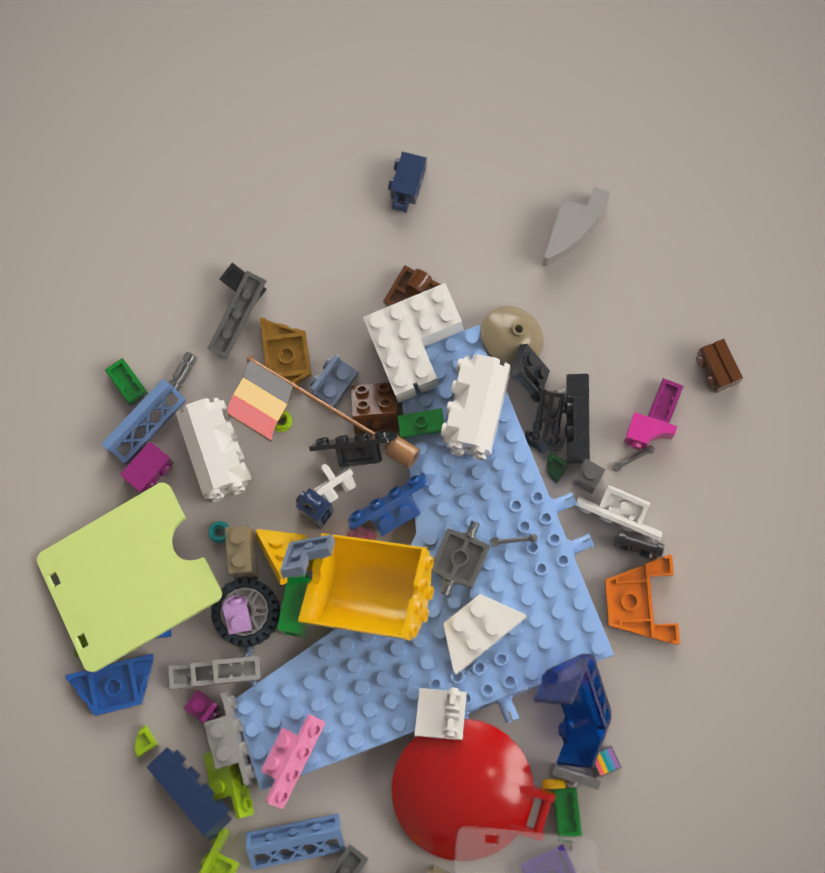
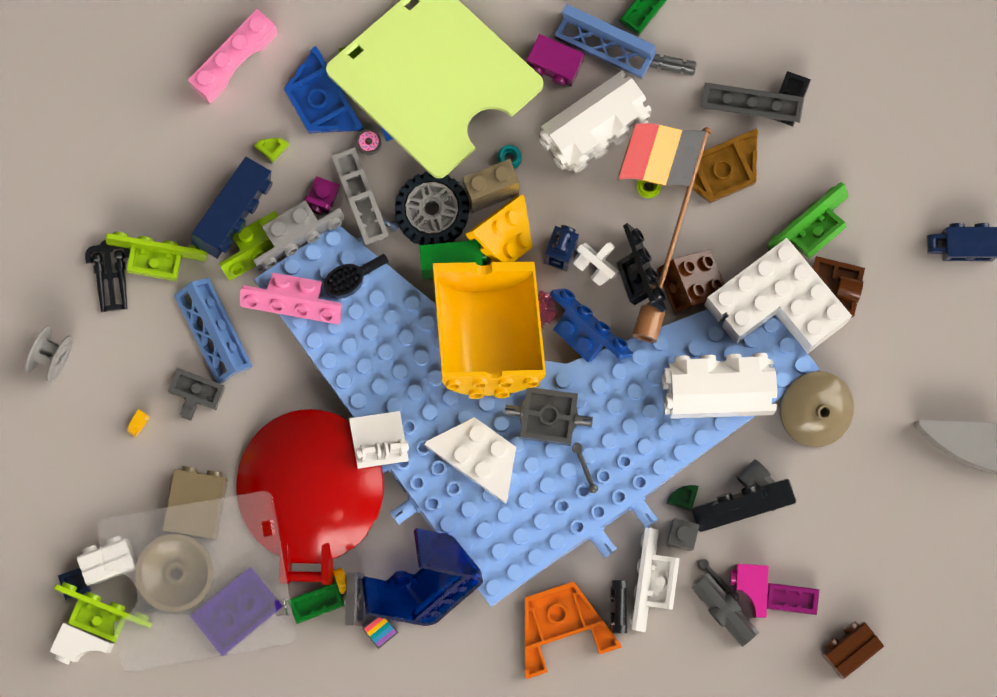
camera: 70 degrees right, 5 degrees up
(55, 767) = (246, 40): none -> bright pink arch
(167, 652) = (368, 142): none -> tile
(237, 614) = (425, 200): lavender bracket -> none
(286, 702) = (348, 278): none -> black piece
(301, 551) = (507, 246): sand blue plate -> none
(333, 381) = (709, 228): sand blue bracket -> none
(358, 294) = (816, 225): none -> bright green bracket
(421, 423) = (687, 334): green plate -> none
(530, 371) = (786, 441): black plate -> none
(543, 445) = (703, 476): black piece -> none
(660, 459) = (725, 610): none -> dark grey piece

